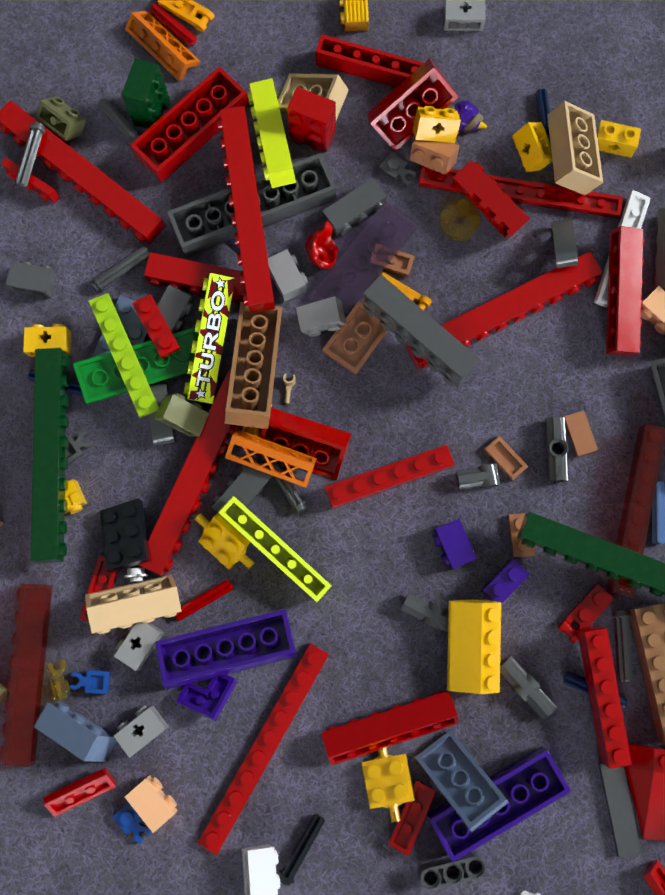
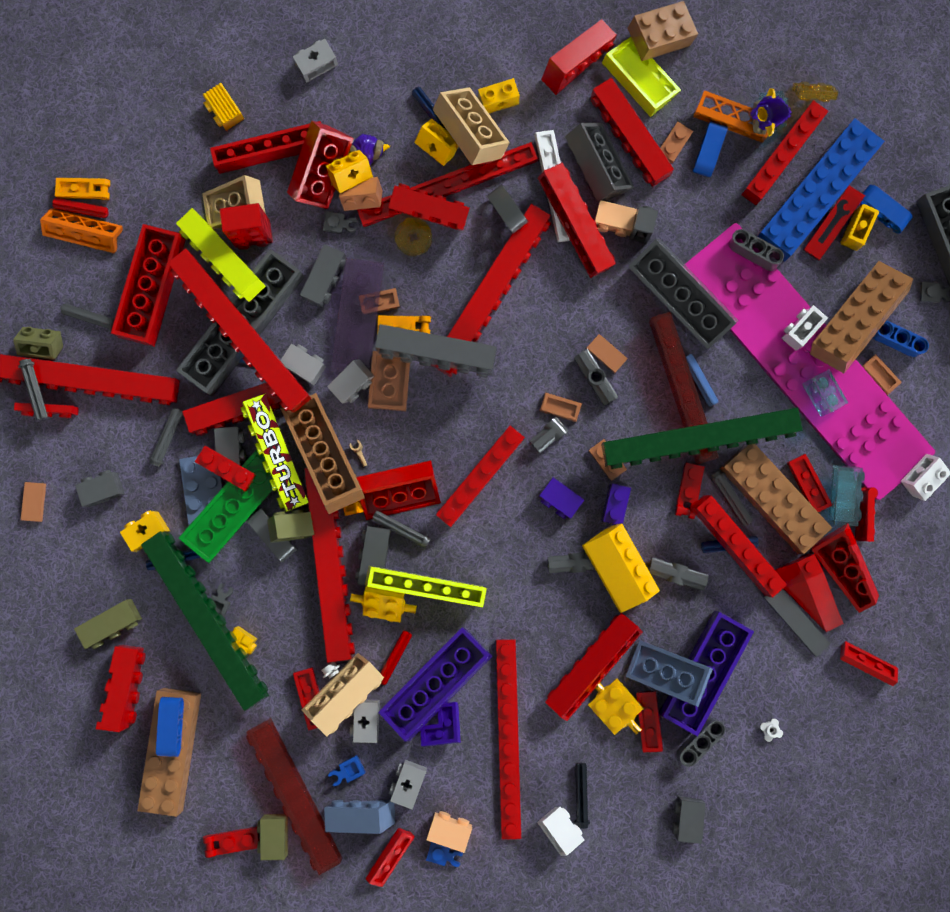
camera: 30 degrees left, 5 degrees up
(59, 686) = (324, 788): clear yellow plate -> none
(124, 355) = (214, 506): lime plate -> none
(124, 535) = (303, 646): black plate -> none
(145, 93) = (97, 283): dark green brick -> none
(272, 450) = (377, 511): orange fence -> none
(321, 247) = (317, 325): red hair -> none

